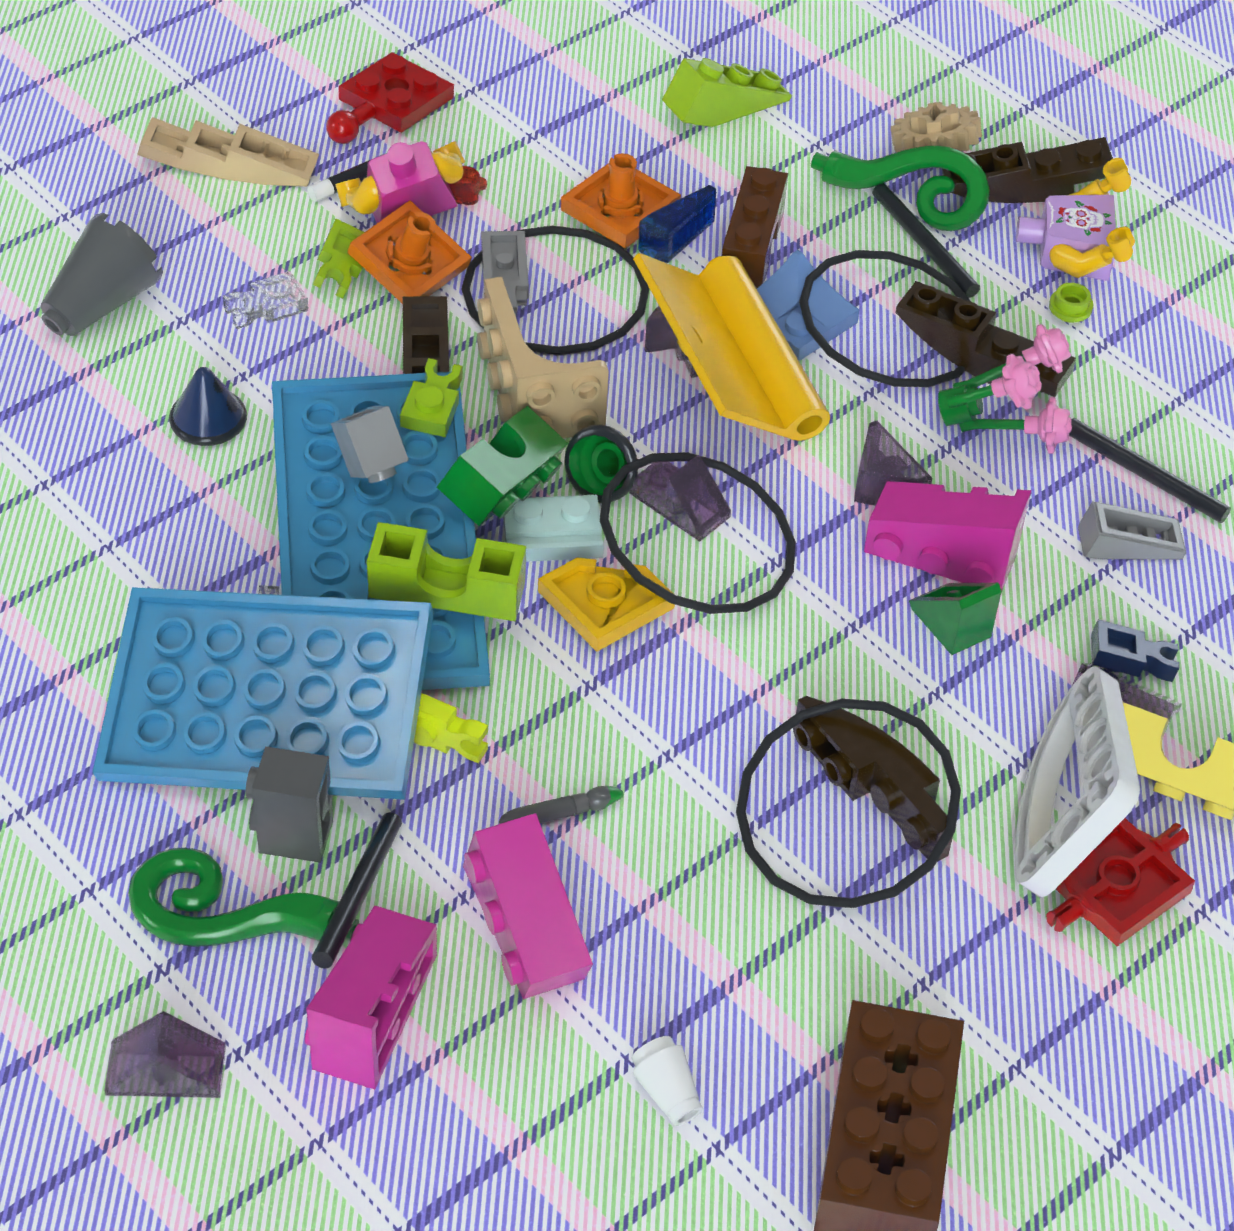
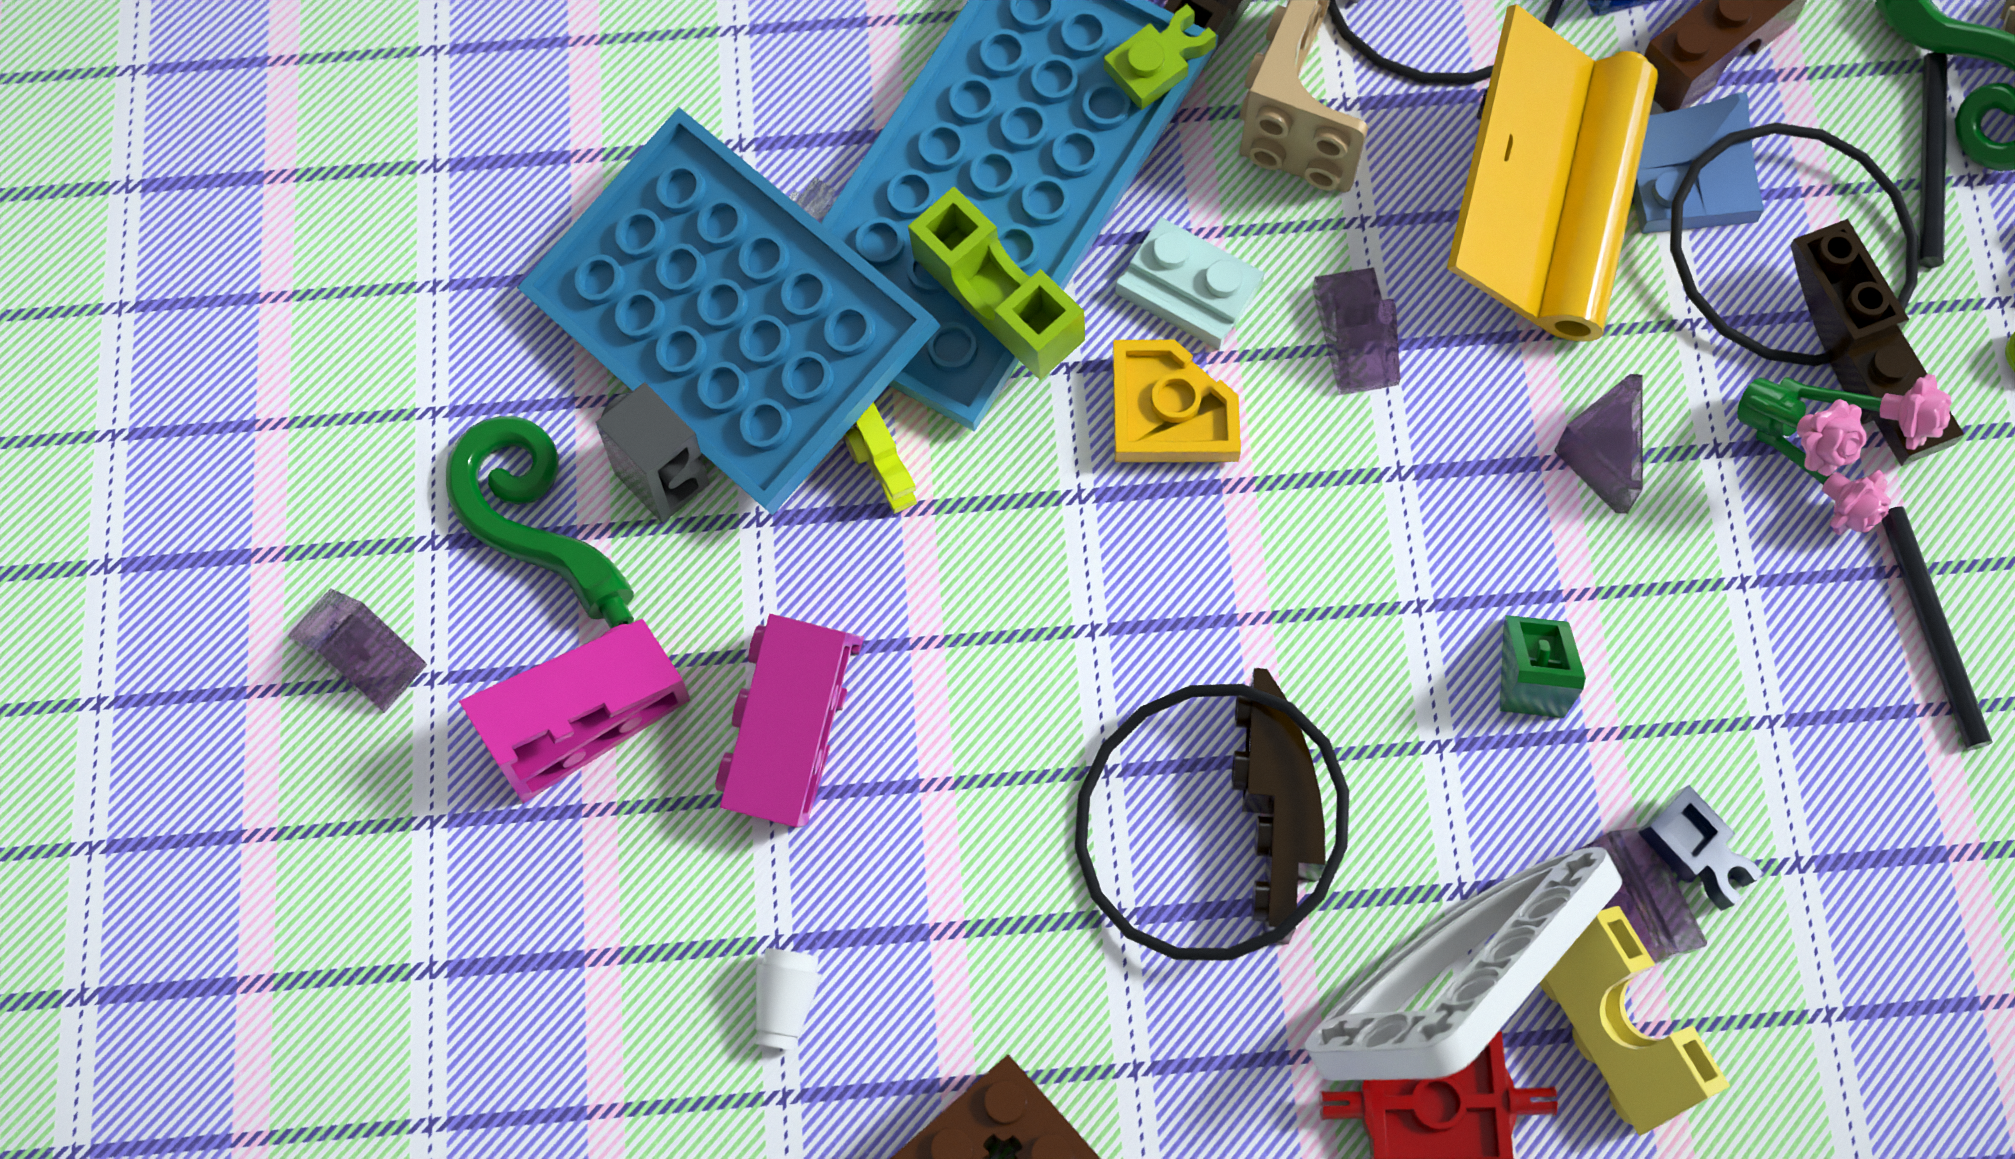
camera: 40 degrees right, 20 degrees up
(356, 891) = (651, 585): black bar -> none
(370, 443) = (1035, 78): light grey brick -> none
(509, 468) = (1129, 195): green arch -> none
(595, 799) = (972, 634): dark grey piece -> none
(596, 457) = (1298, 239): green hat -> none
(660, 591) = (1248, 472): black piece -> none
(948, 533) = (1607, 567): dark pink wedge -> none
(1114, 534) = (1805, 701): light grey slope -> none

